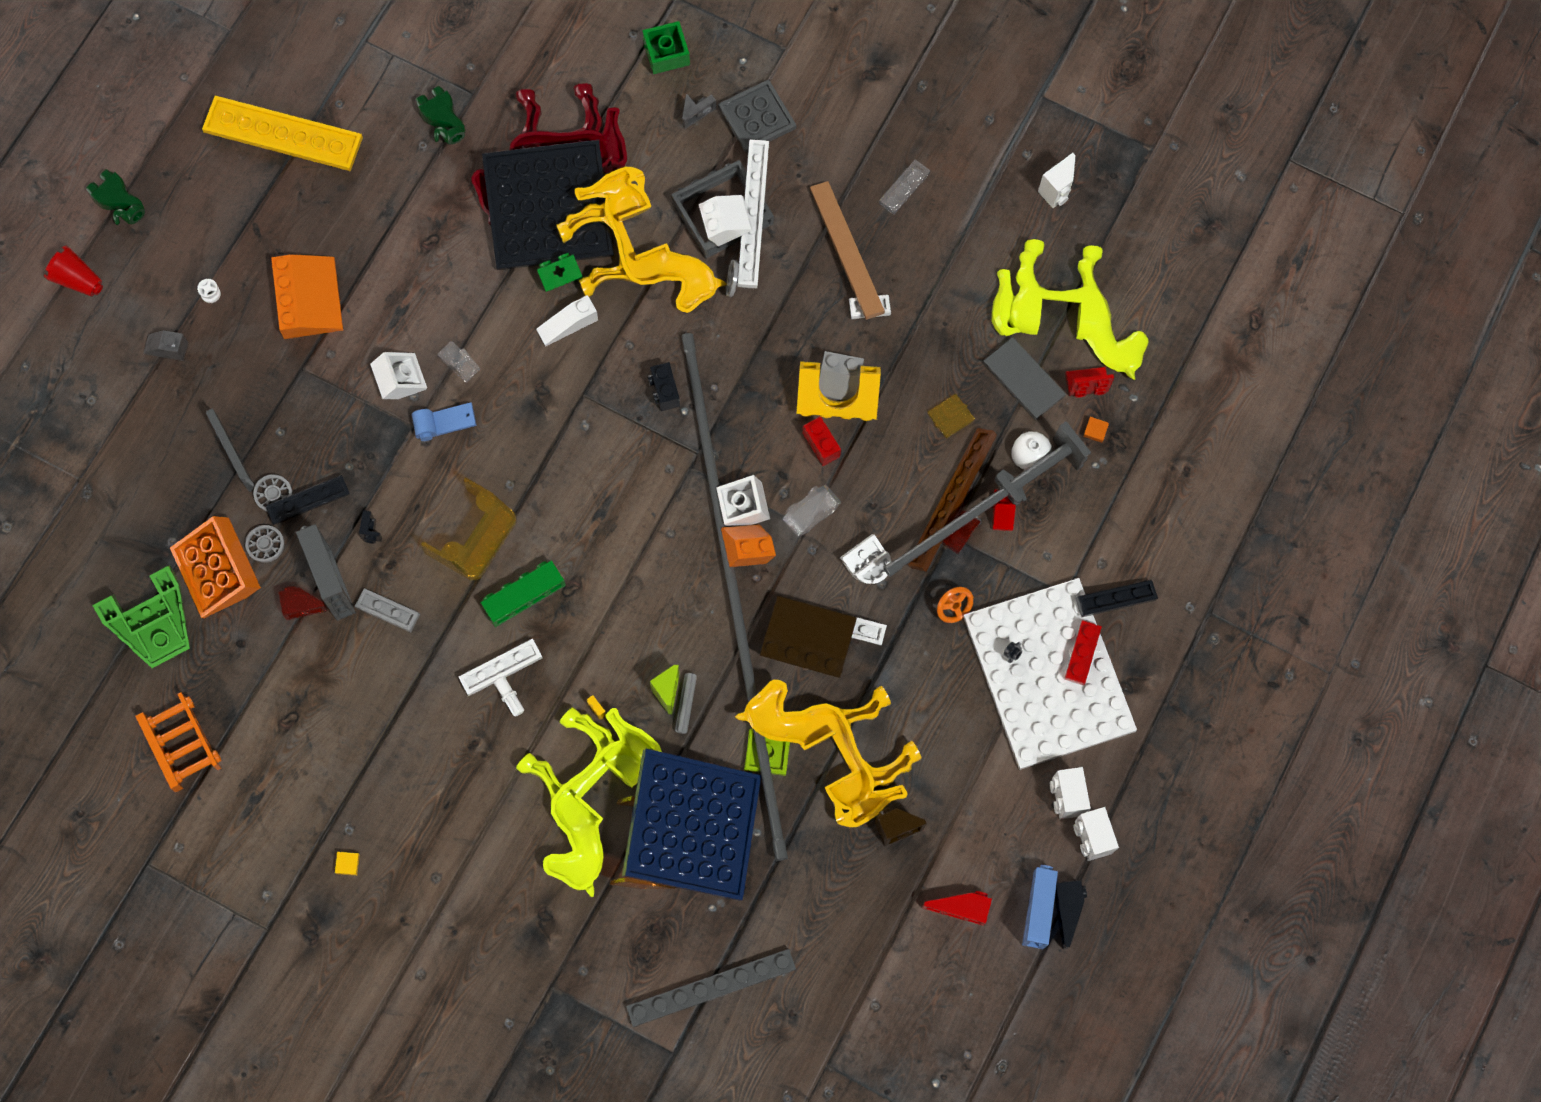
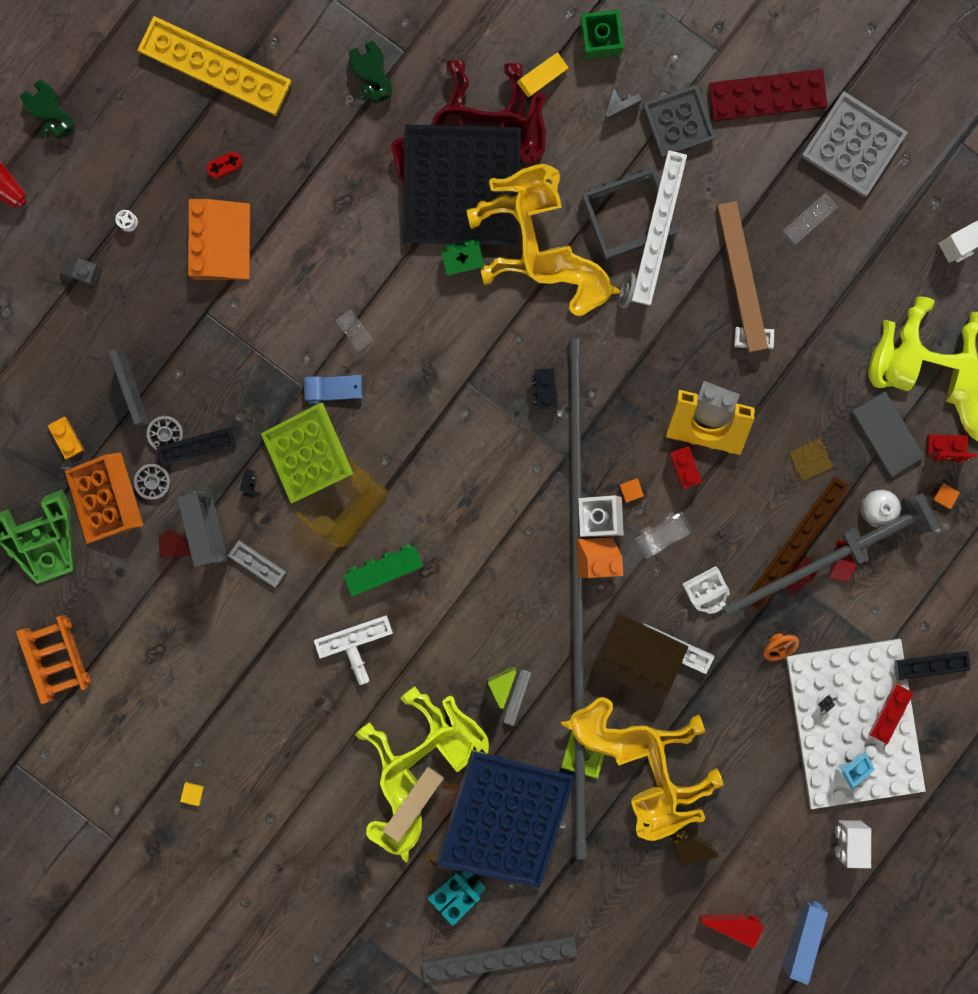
camera: 15 degrees right, 15 degrees up
(167, 514) = (65, 438): none -> light orange plate
(303, 224) = (222, 161): none -> red beam
(398, 375) = (295, 336): white slope -> none
(425, 484) = (307, 453): none -> lime plate
(568, 320) = (463, 307): white slope -> none
(589, 827) = (413, 804): none -> tan tile
(596, 707) = (434, 688): yellow tile -> none
(613, 92) = (542, 75): none -> yellow tile
(659, 919) = (456, 895): none -> teal hips
(725, 218) = (631, 231): white slope -> none
(771, 474) = (631, 490): none -> orange tile
(841, 80) = (768, 95): none -> dark red plate
(935, 112) = (854, 144): none -> light grey plate
(1057, 713) = (857, 770): none -> medium azure slope
(1069, 904) = (831, 946): black slope -> none
(1096, 834) = (870, 887): white brick -> none

